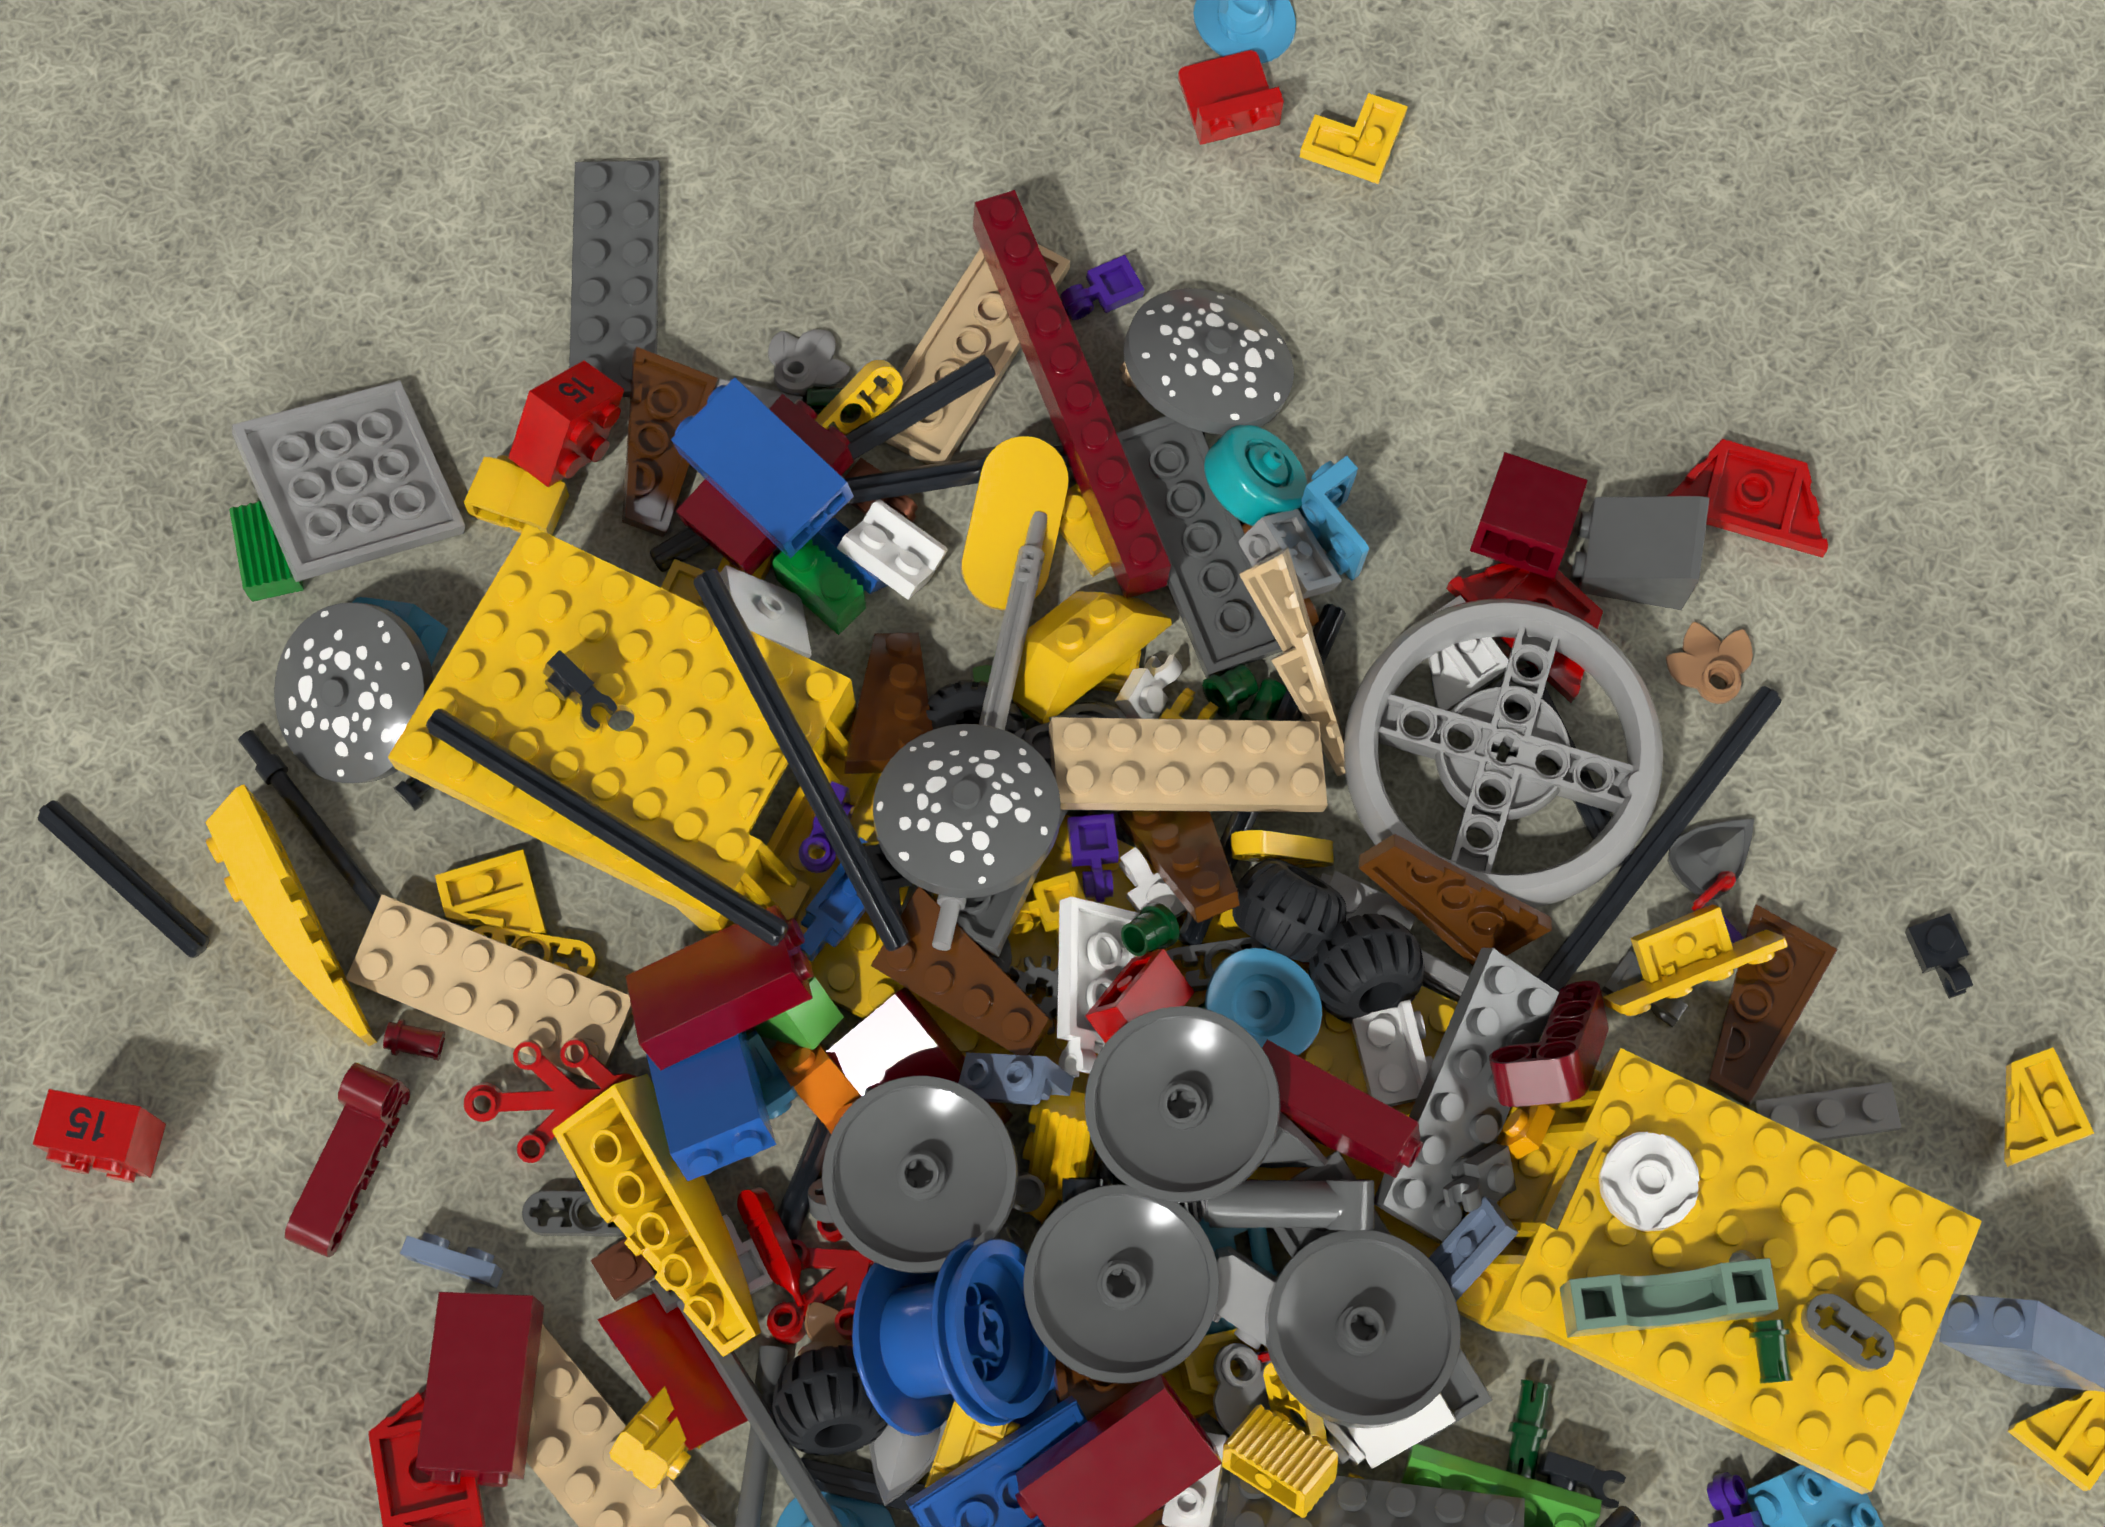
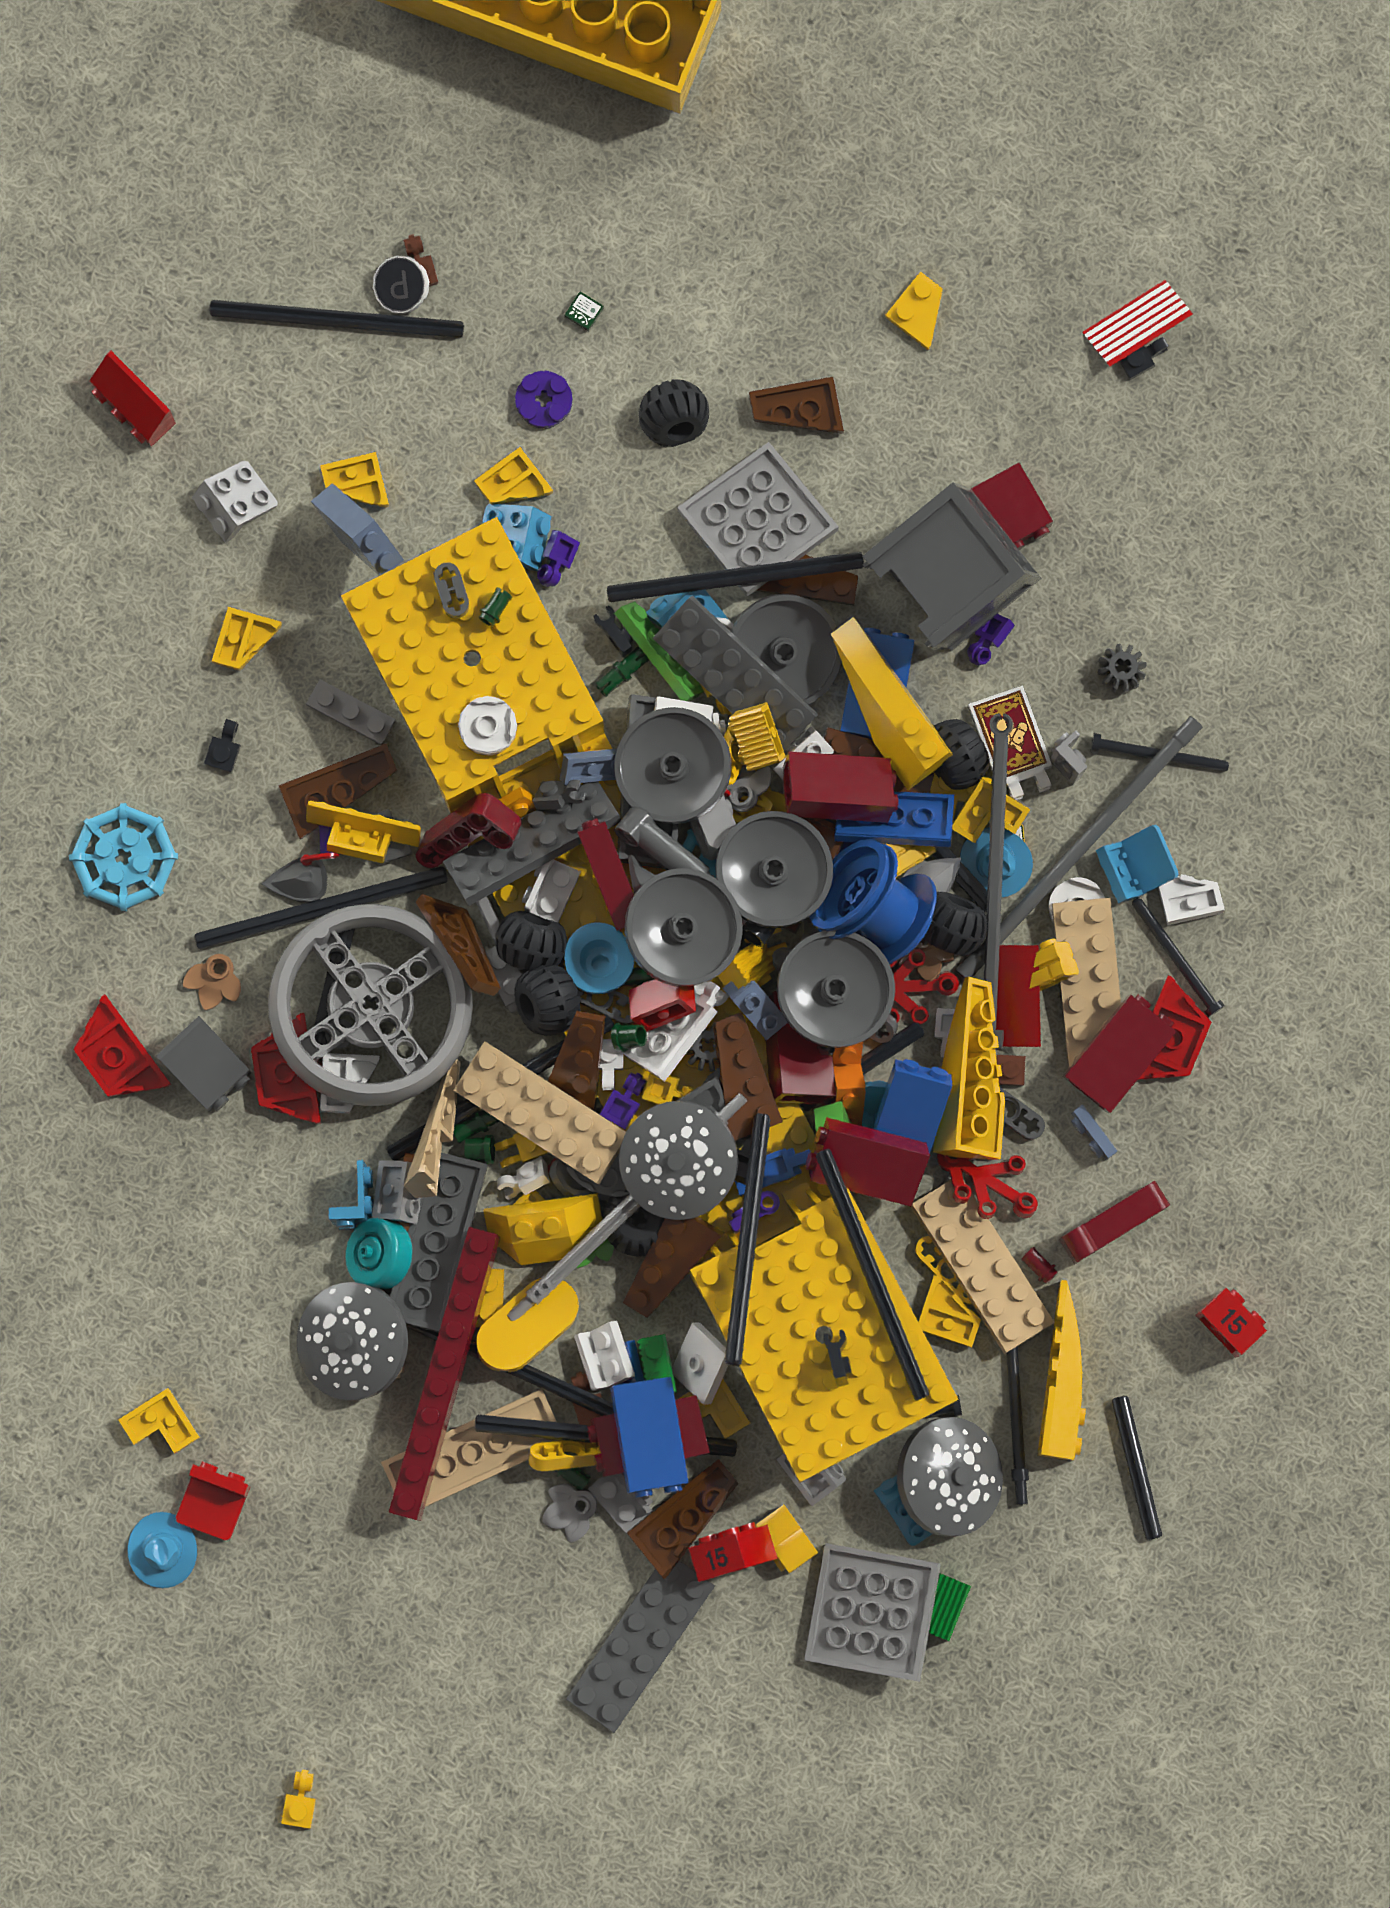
camera: 145 degrees left, 10 degrees up
(771, 1240) = (927, 1027): red piece -> none
(1110, 283) = (367, 1432): dark purple plate -> none
(1294, 849) = (524, 1037): yellow beam -> none
(1529, 515) = (249, 1126): dark red brick -> none
(1668, 1300) = (513, 657): sand green arch -> none
(1968, 721) = (108, 850): none -> medium azure plate

